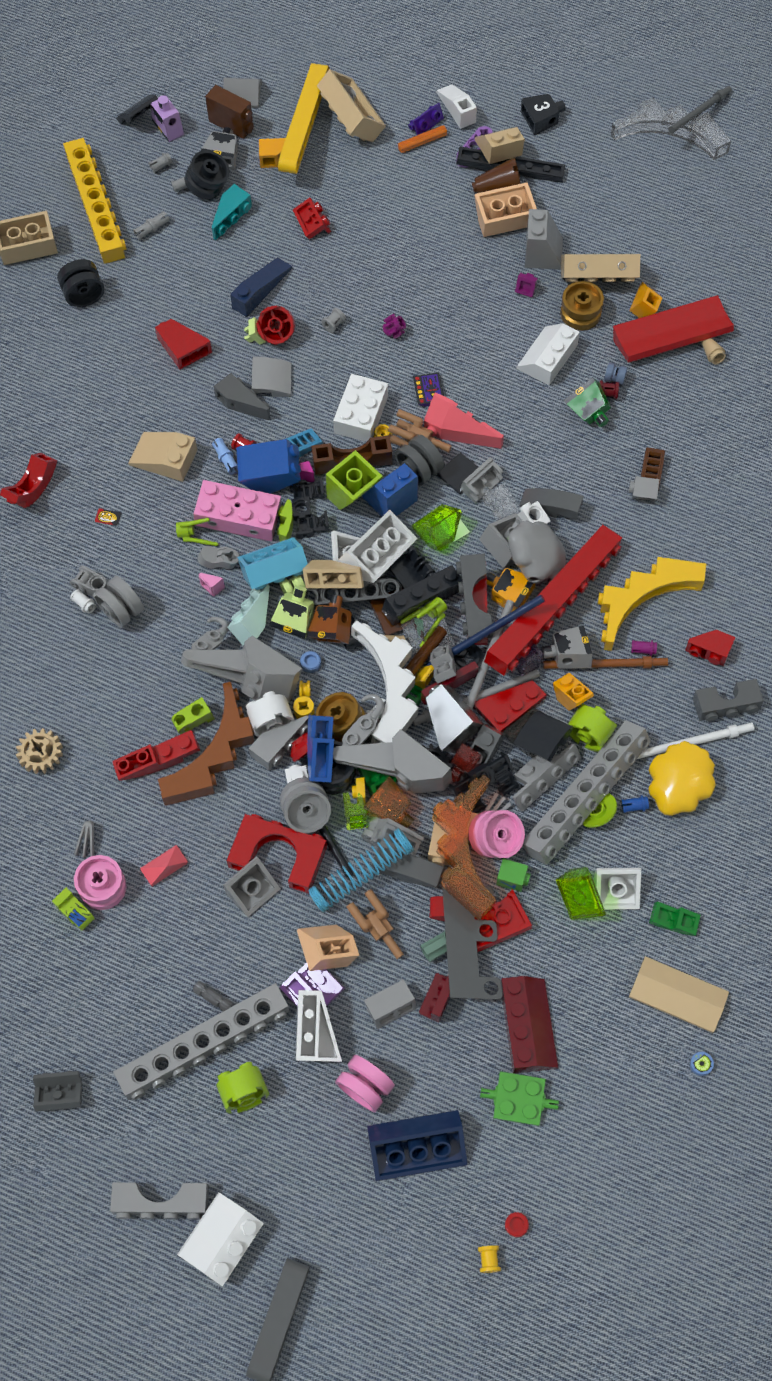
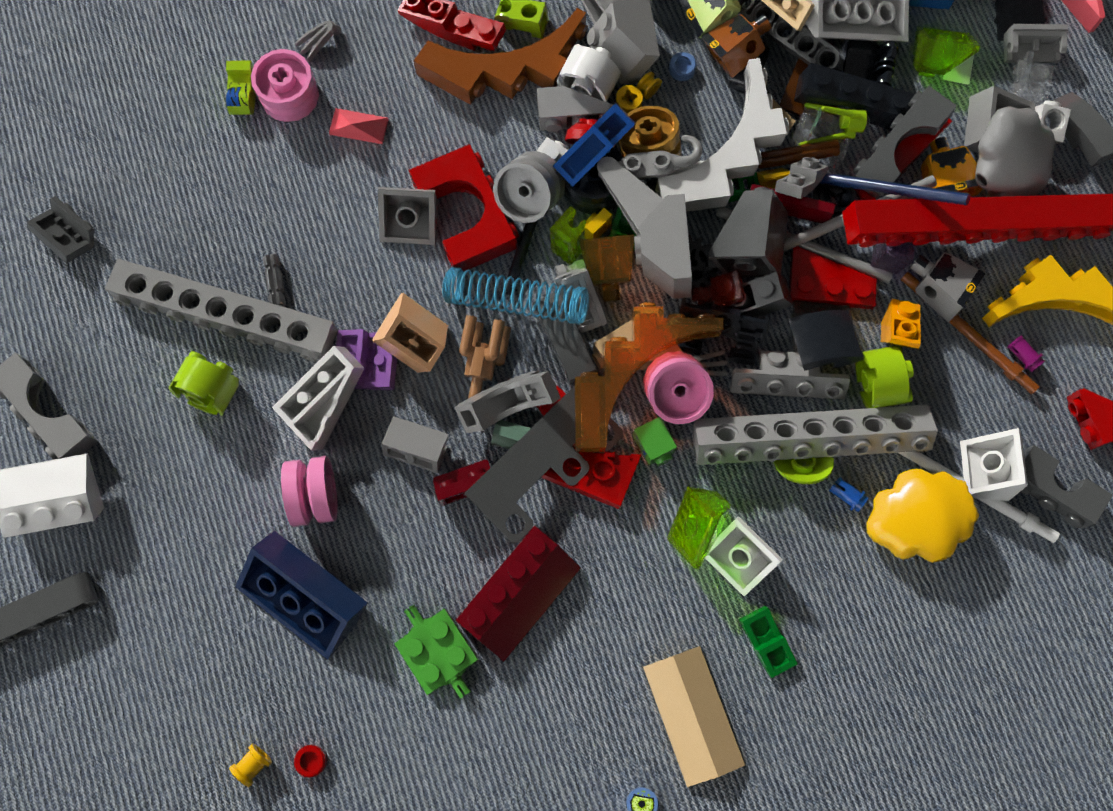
camera: 45 degrees right, 10 degrees up
(414, 926) = (505, 399): none -> light grey arch
(688, 718) = (994, 465): none -> white slope

